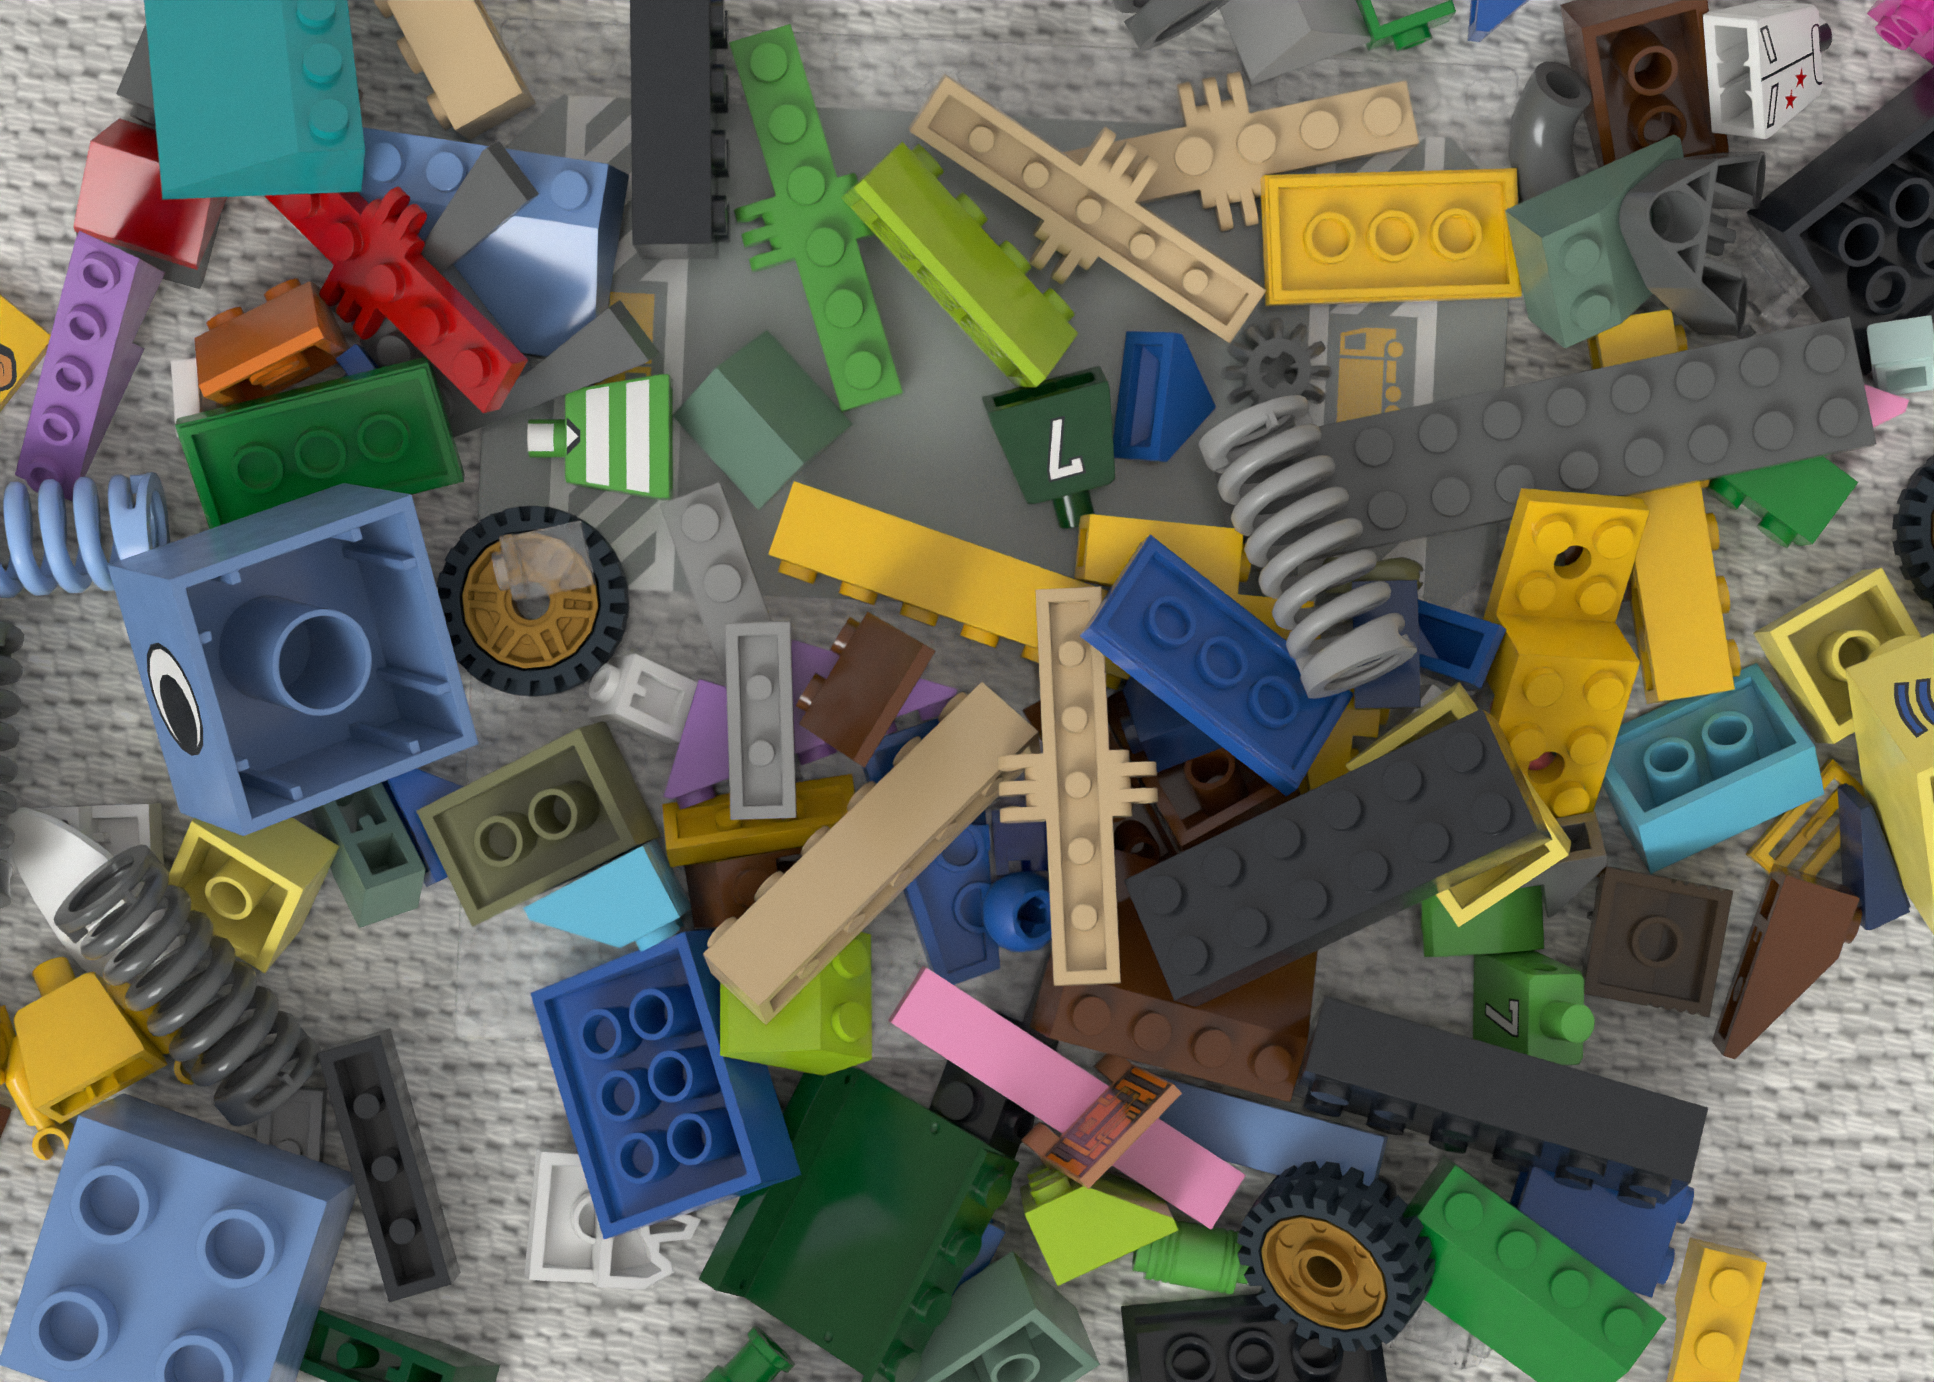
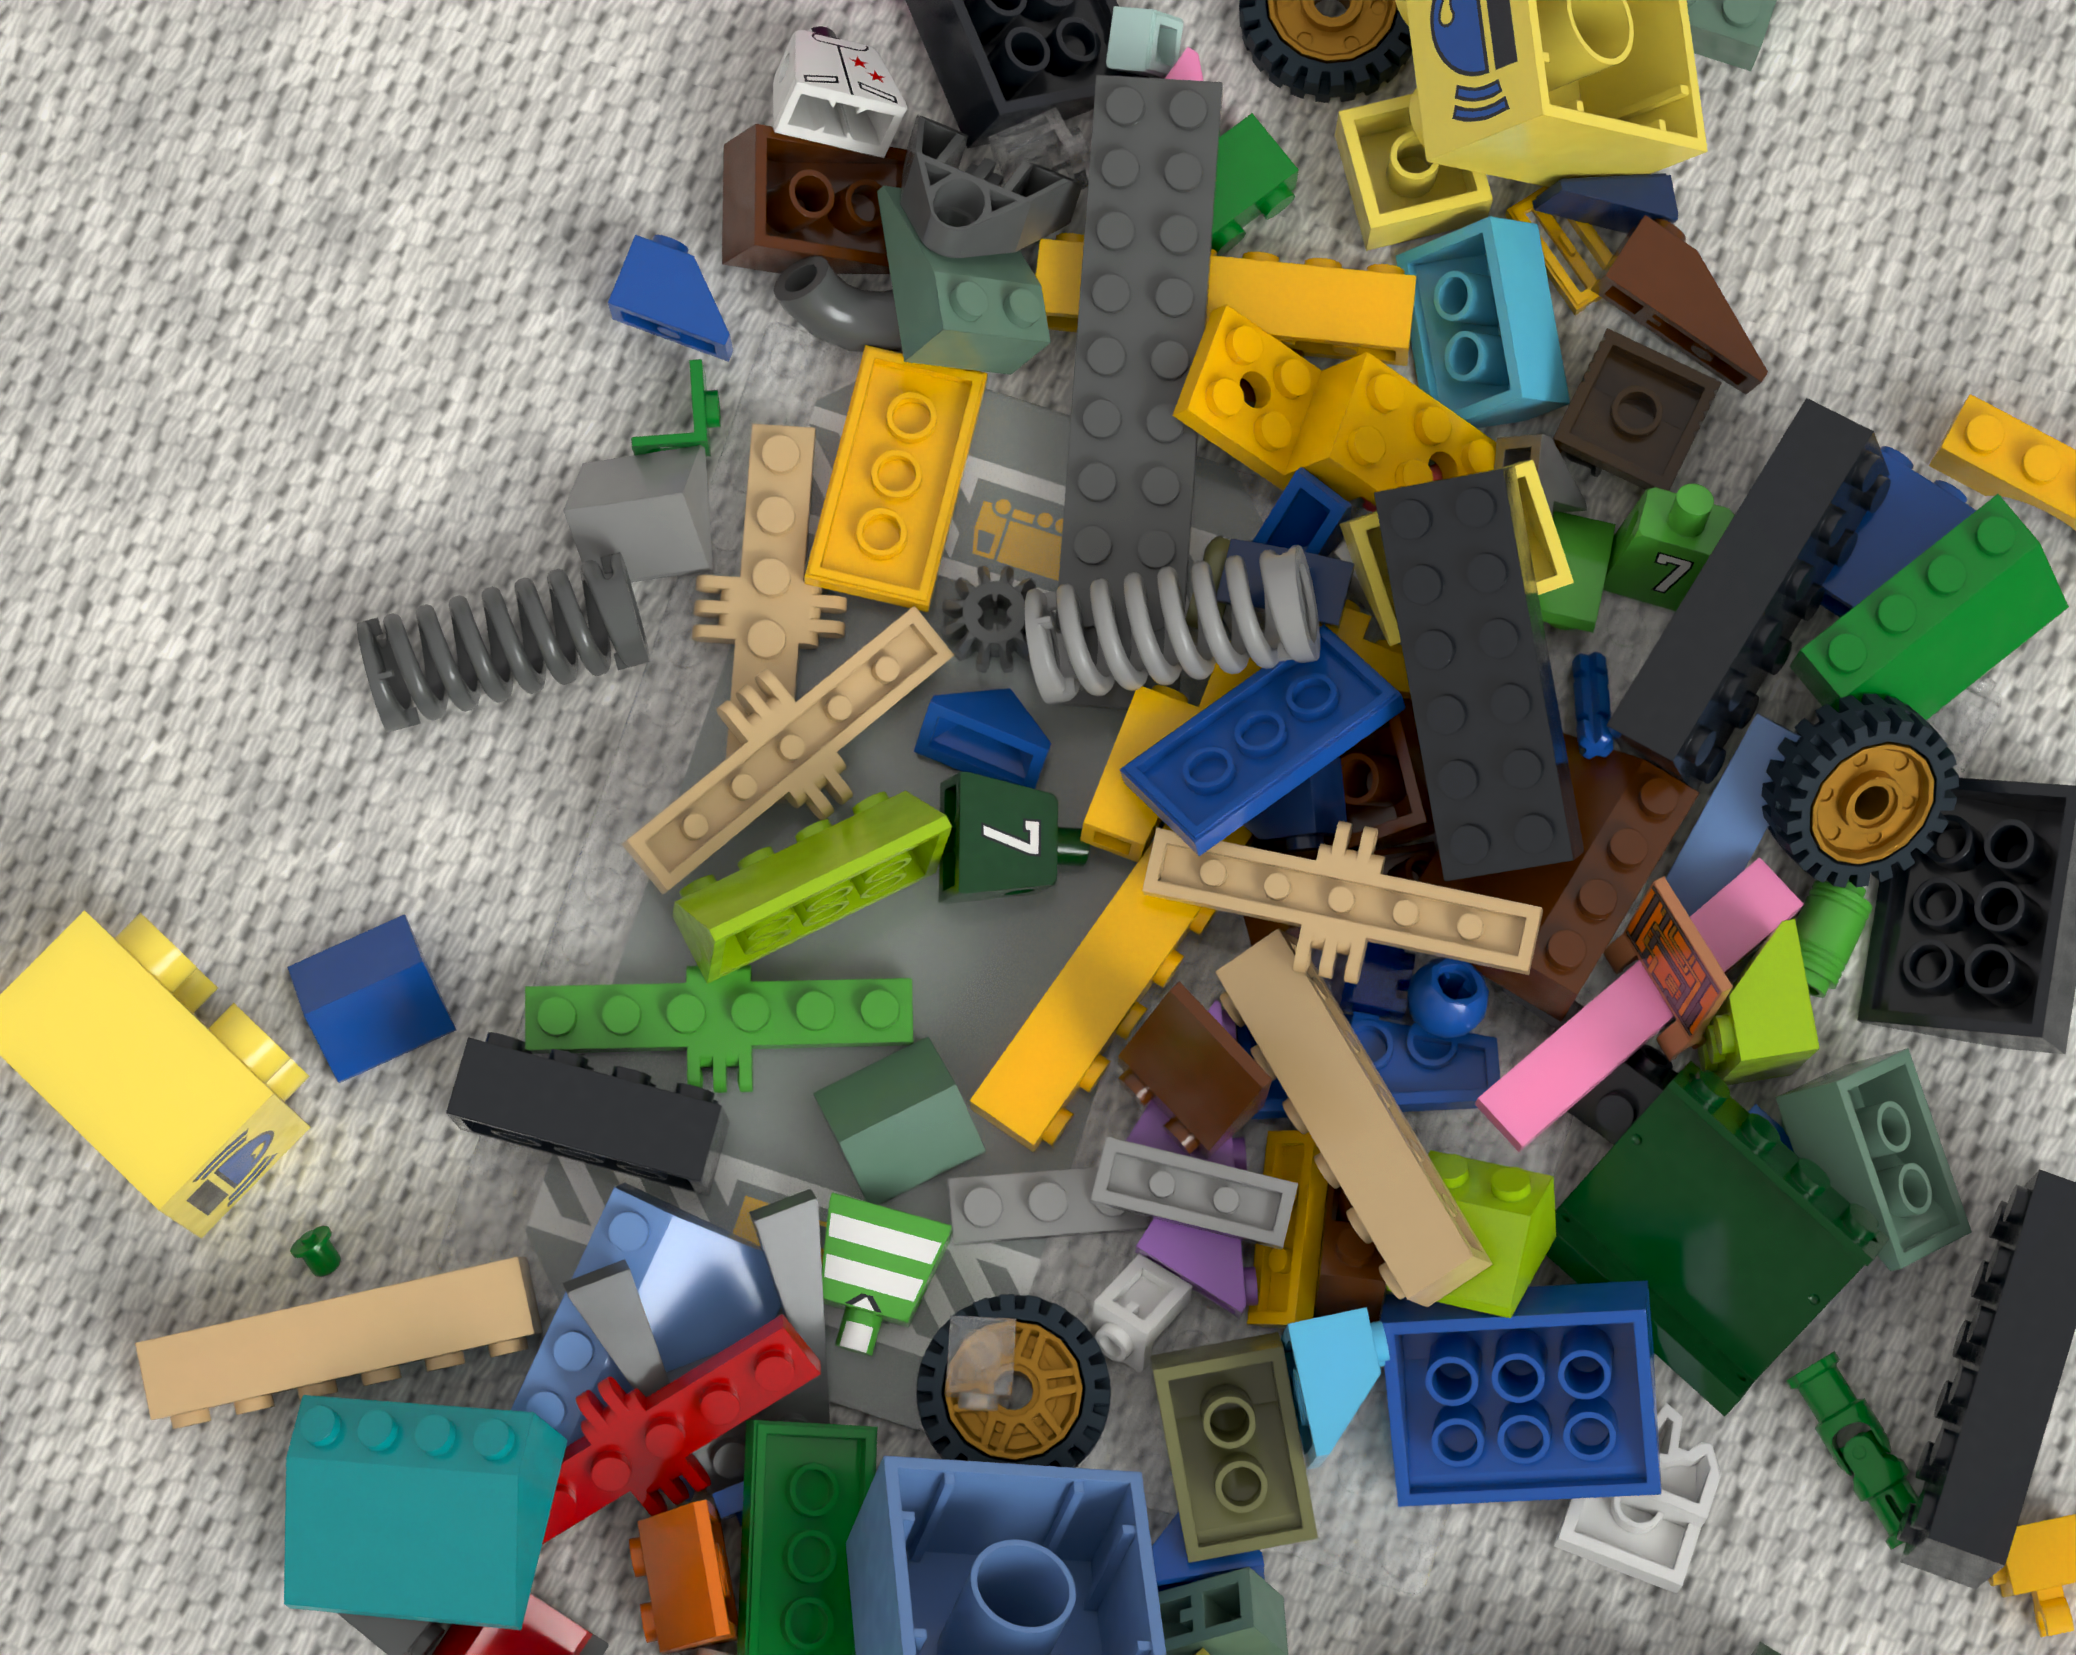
camera: 75 degrees left, 10 degrees down
(1351, 974) = (1592, 705): none -> blue axle

